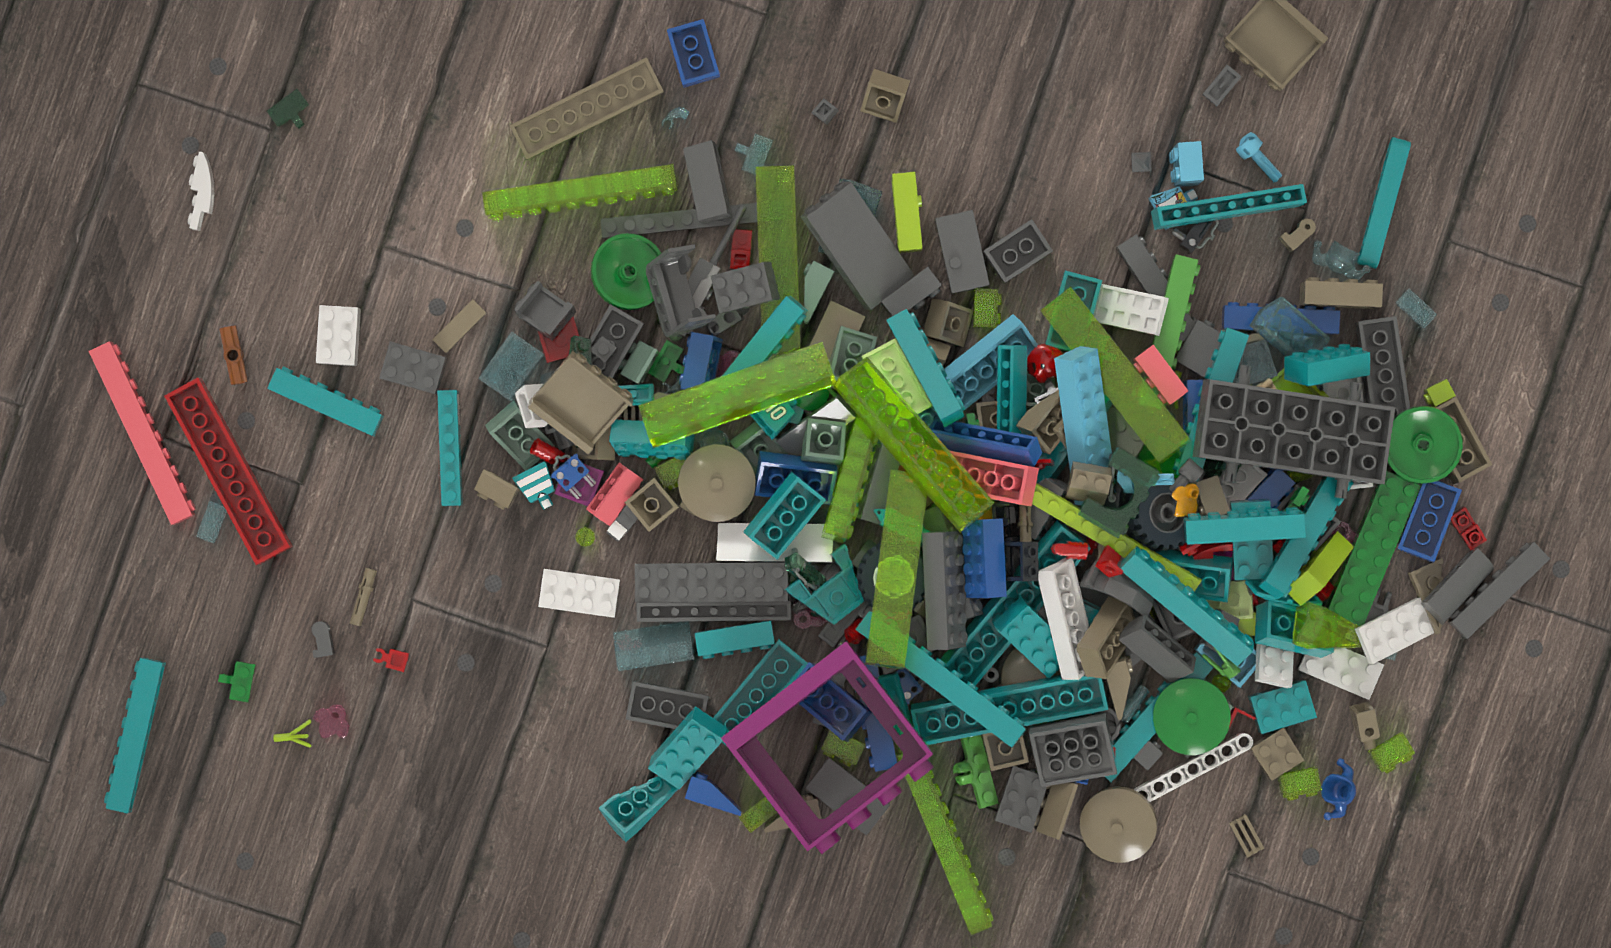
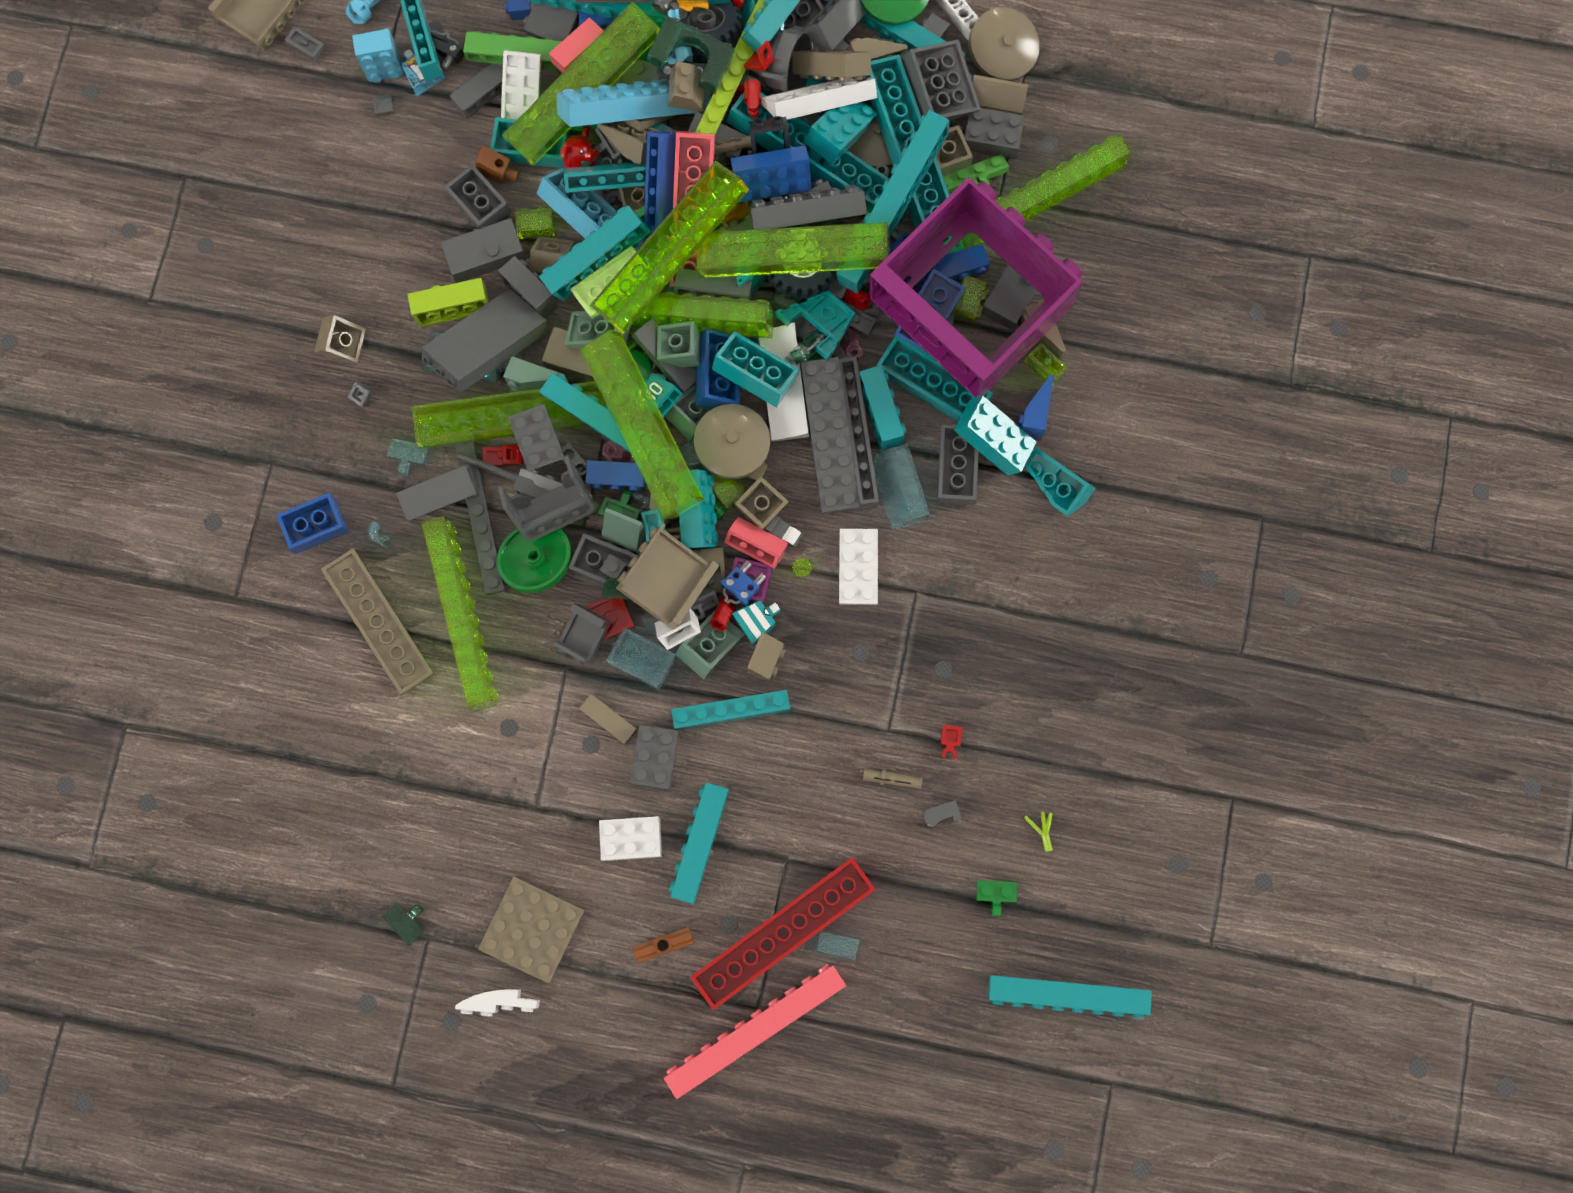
camera: 95 degrees left, 10 degrees down
(266, 230) = (531, 930): none -> dark tan plate
(330, 724) = (1026, 794): clear pink plate -> none
(1055, 266) = (495, 166): none -> dark orange torso

